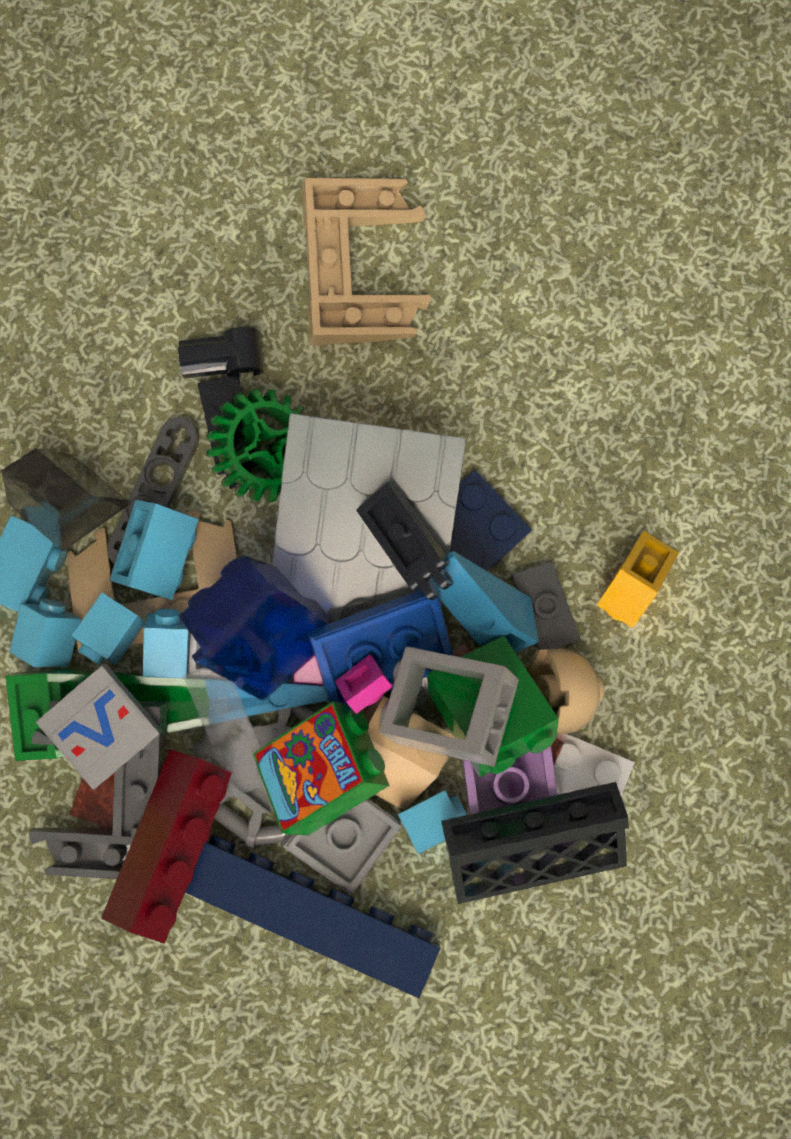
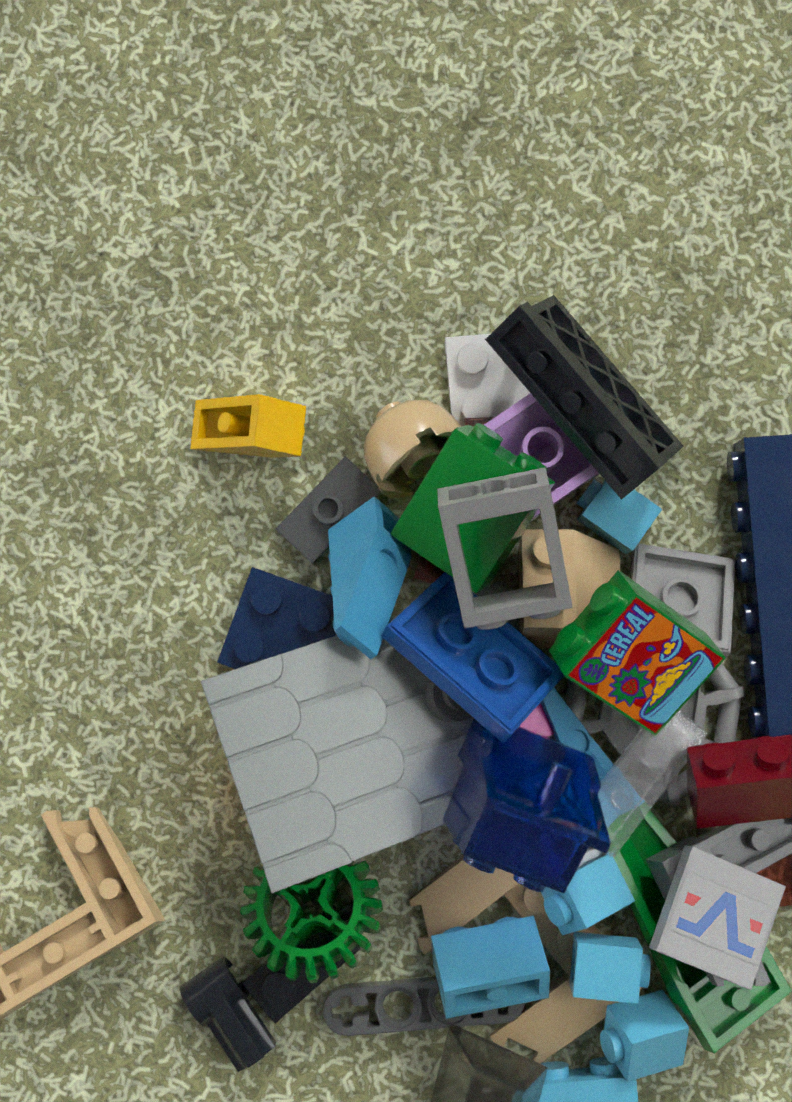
camera: 120 degrees left, 5 degrees up
(363, 684) = (527, 653): dark pink plate -> none
(406, 540) = (349, 687): black hinge -> none

